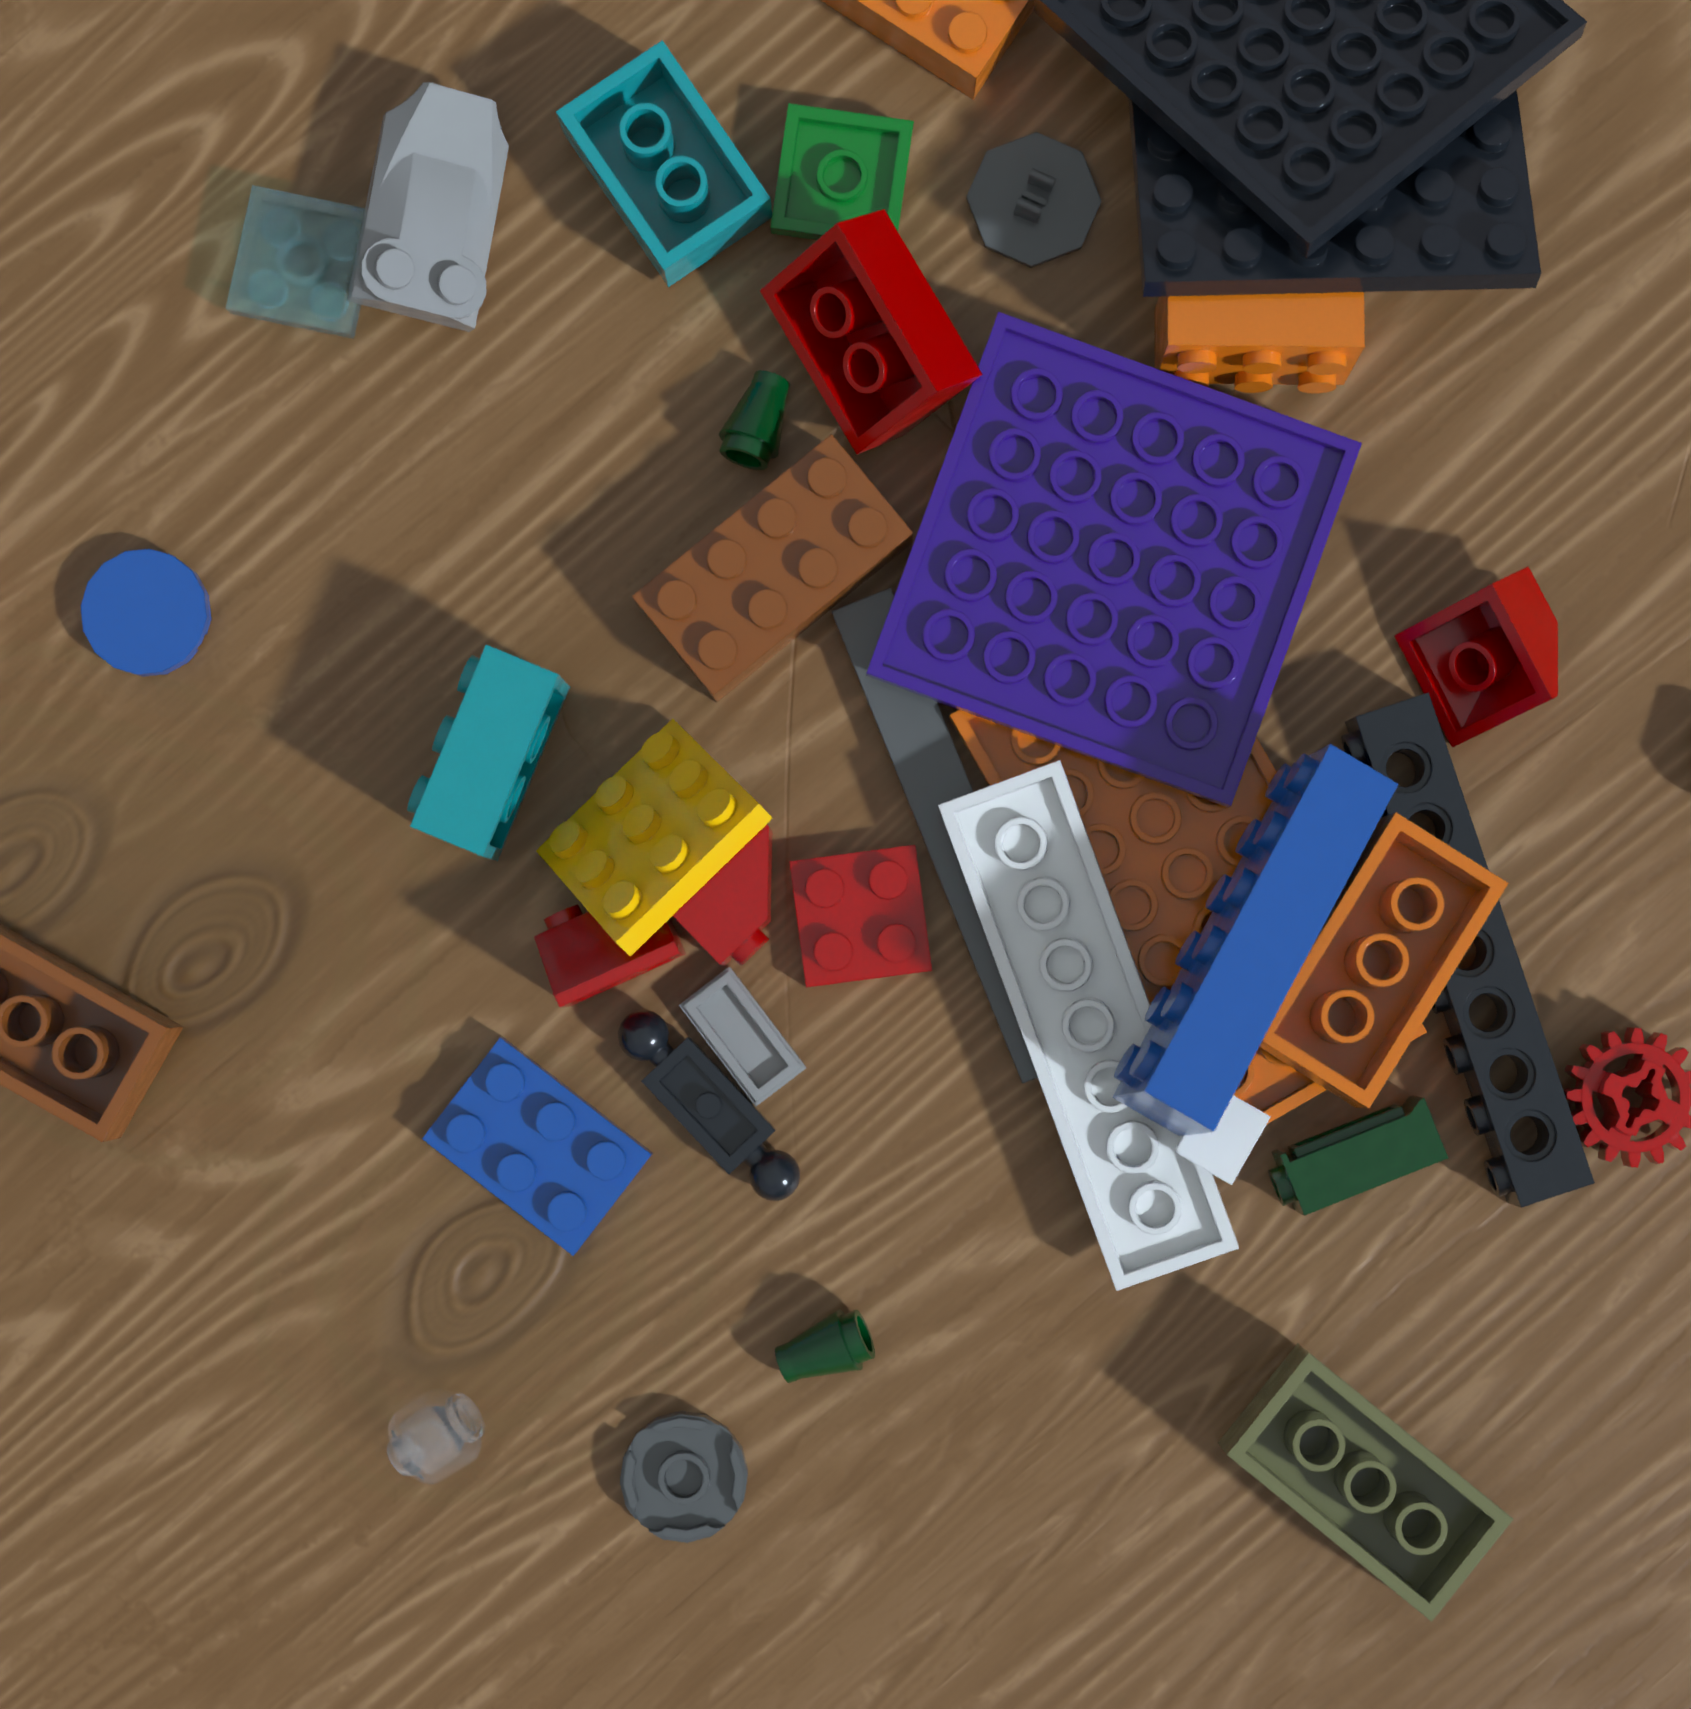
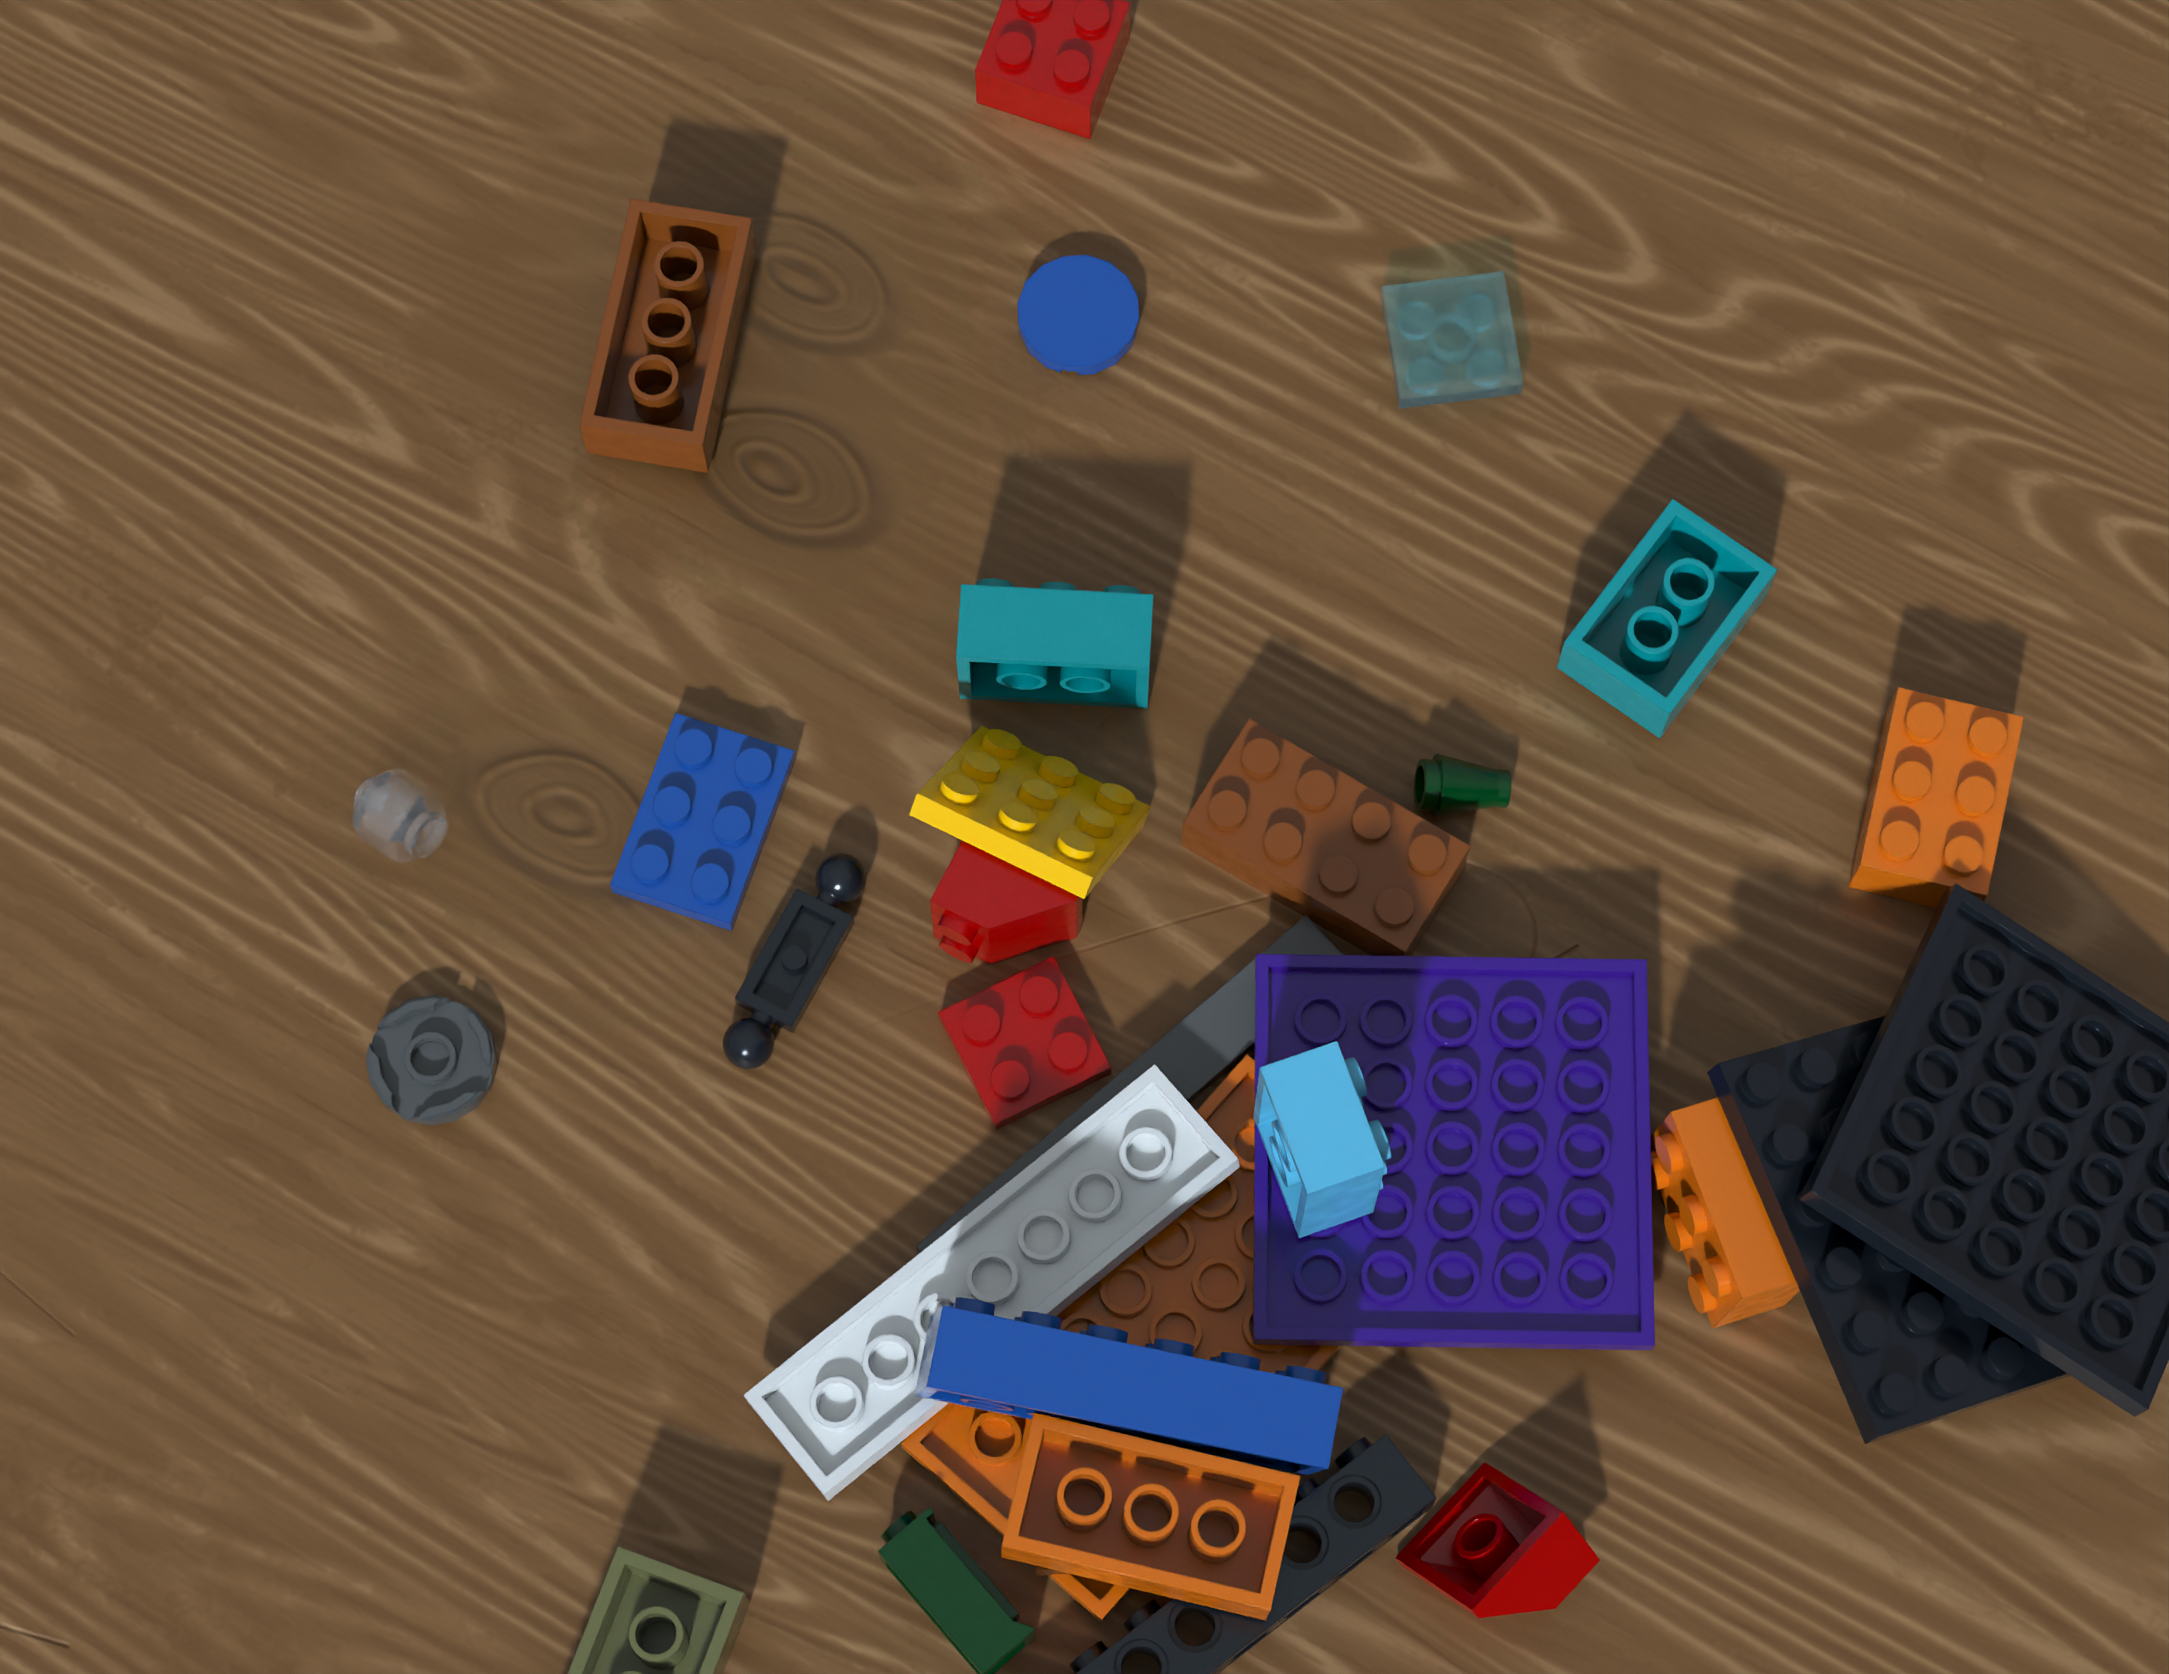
camera: 70 degrees right, 15 degrees down
(431, 208) = (1544, 431): light grey slope -> none
(587, 961) = (880, 797): red slope -> none
(742, 1036) = (871, 973): light grey tile -> none
(829, 1347) = (601, 1151): dark green cone -> none
(838, 169) = (1722, 786): green plate -> none
(870, 331) = (1581, 850): red brick -> none
(1033, 199) = (1774, 974): dark grey piece -> none
(1096, 678) = (1320, 1138): none -> medium azure brick
(1229, 1145) = (930, 1437): white panel -> none

